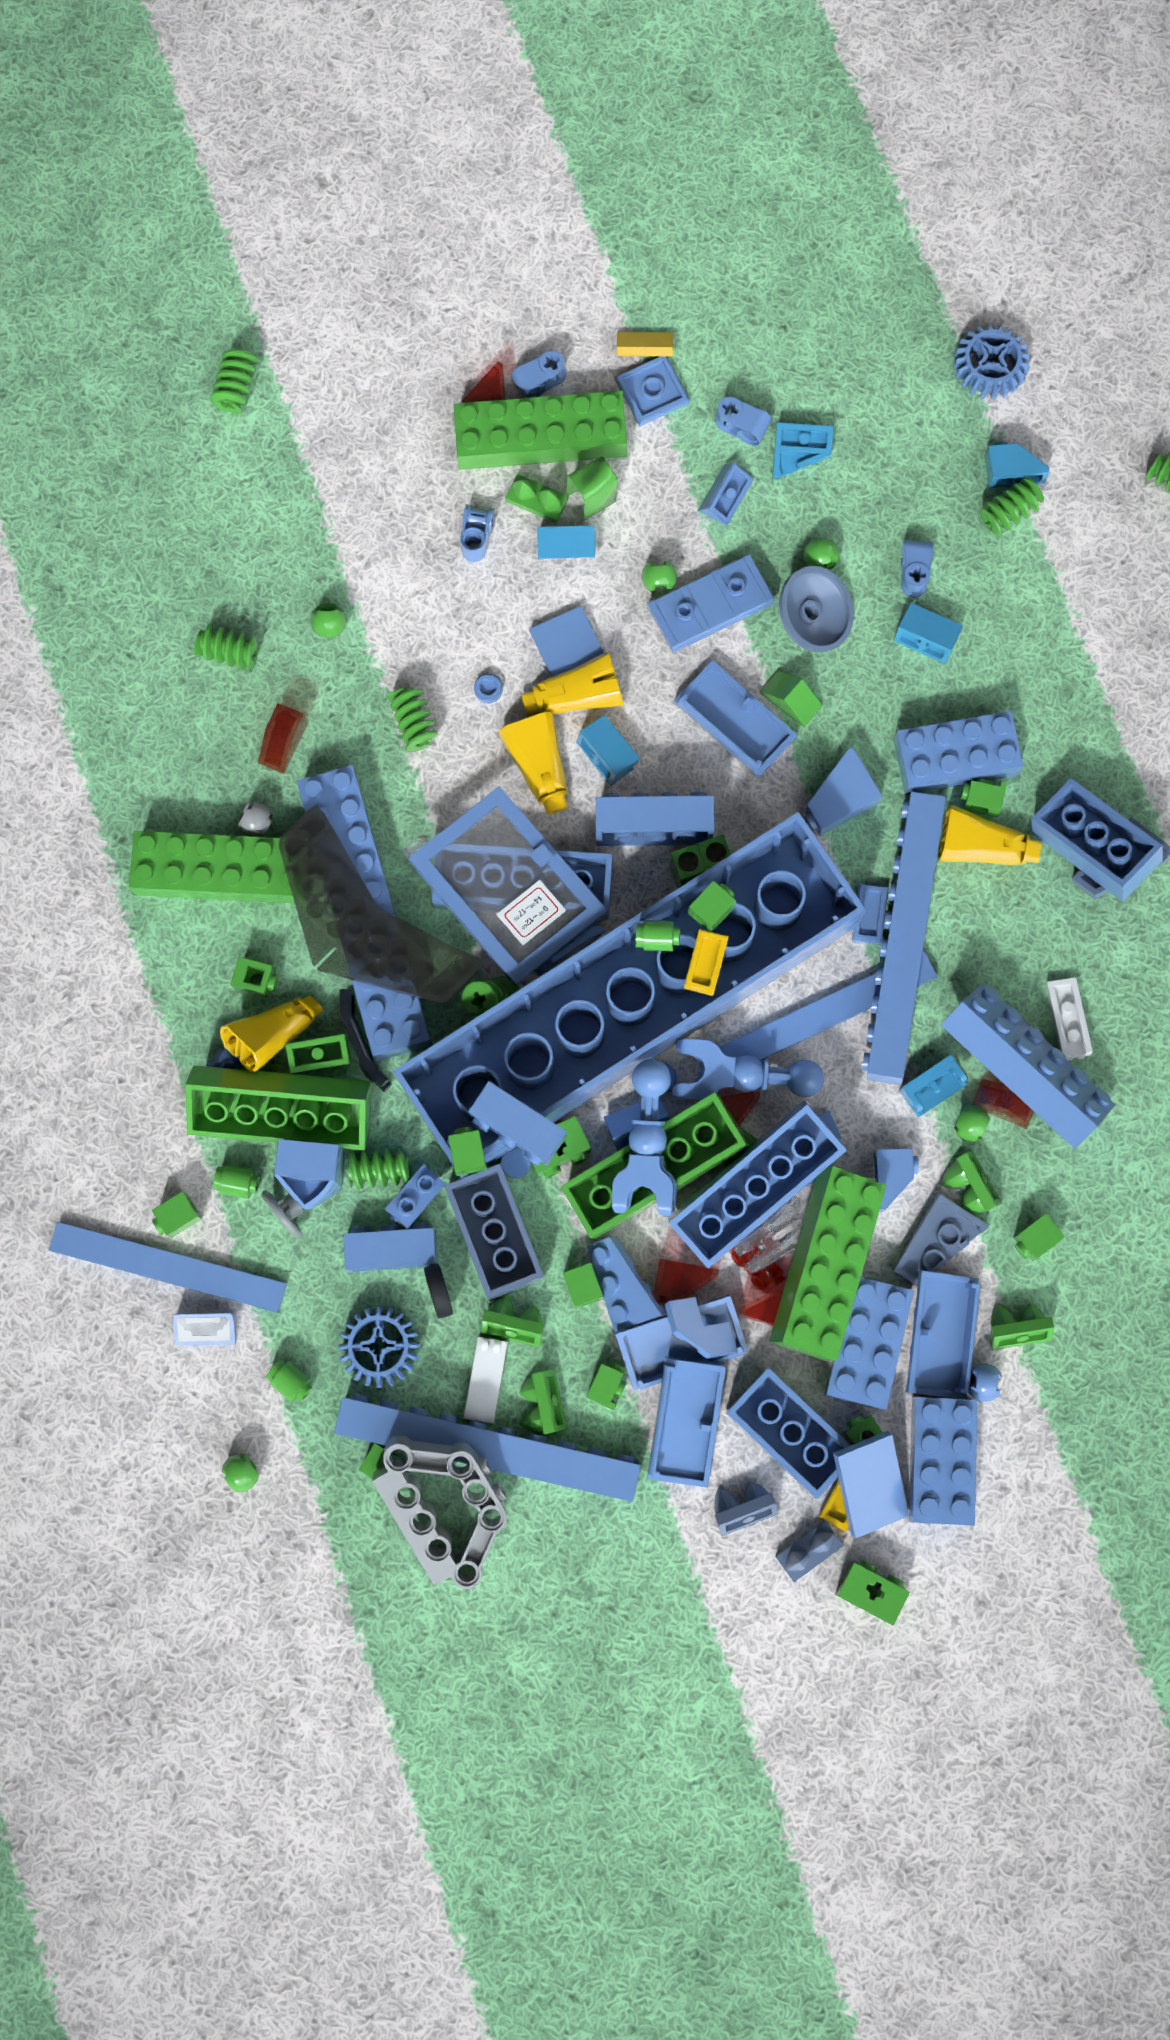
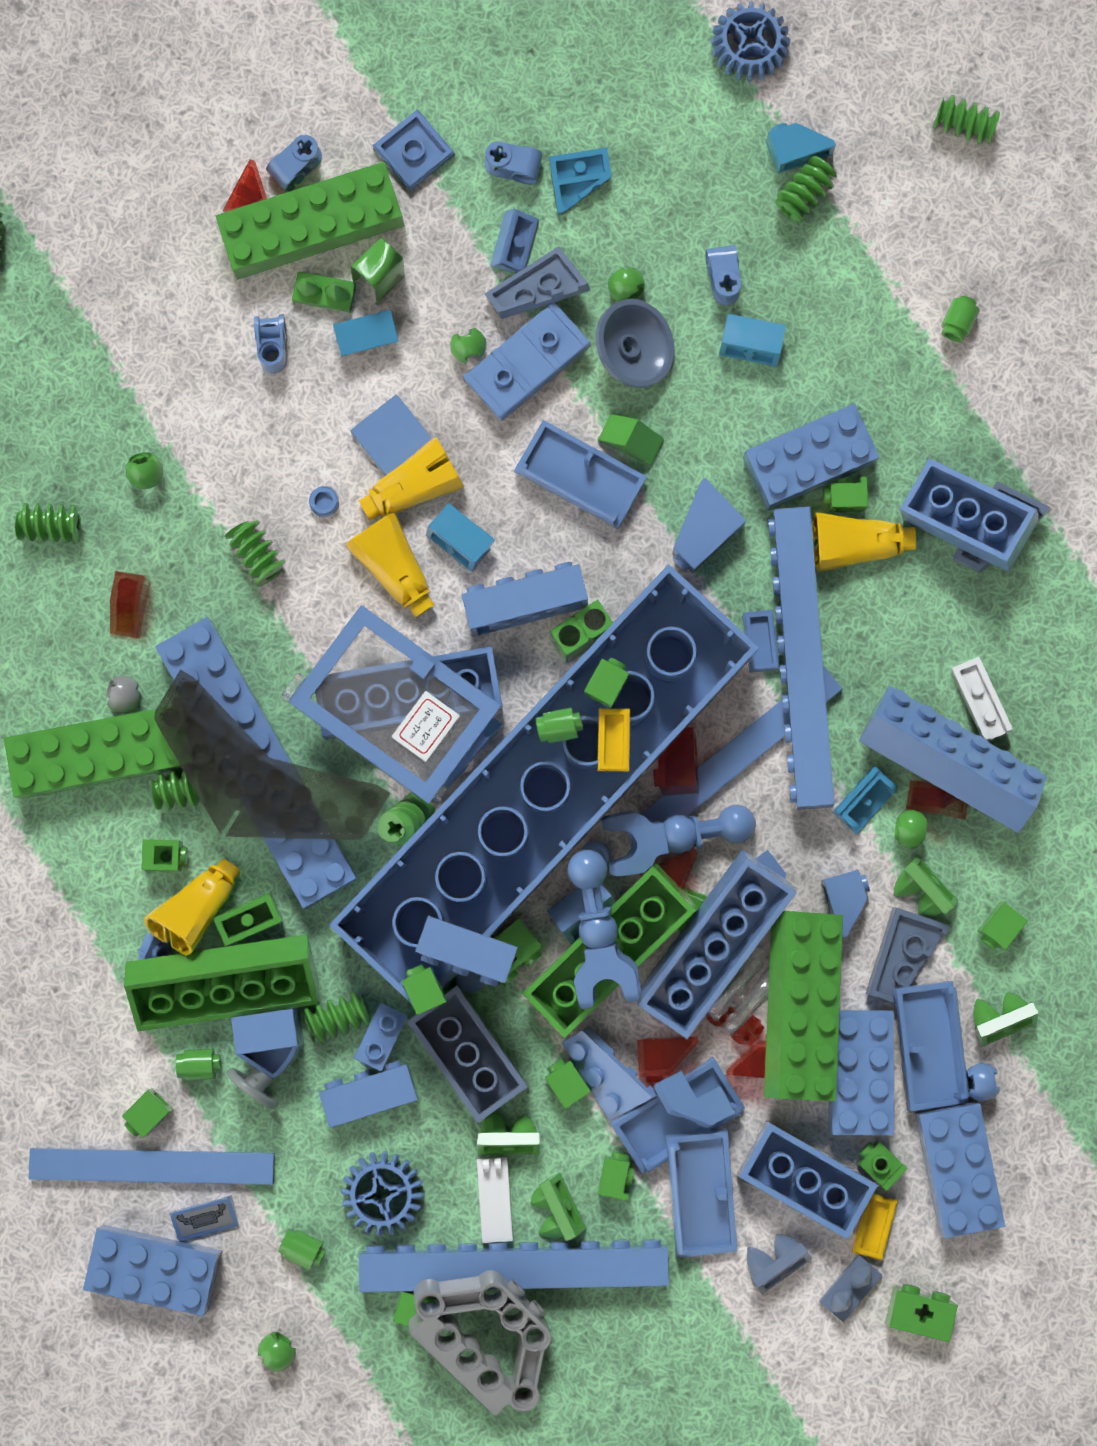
camera: 15 degrees left, 5 degrees up
(142, 1364) = (152, 1270): none -> medium blue brick
(279, 919) = (173, 790): none -> bright green piece
(346, 1014) = (268, 875): black piece -> none
(438, 1291) = (426, 1125): black tyre -> none
(644, 343) = (394, 104): yellow tile -> none
(737, 536) = (537, 285): none -> sand blue wing
(763, 1010) = (679, 766): none -> clear red slope
(871, 1484) = (896, 1211): tile -> none
(1130, 658) = (960, 318): none -> bright green brick

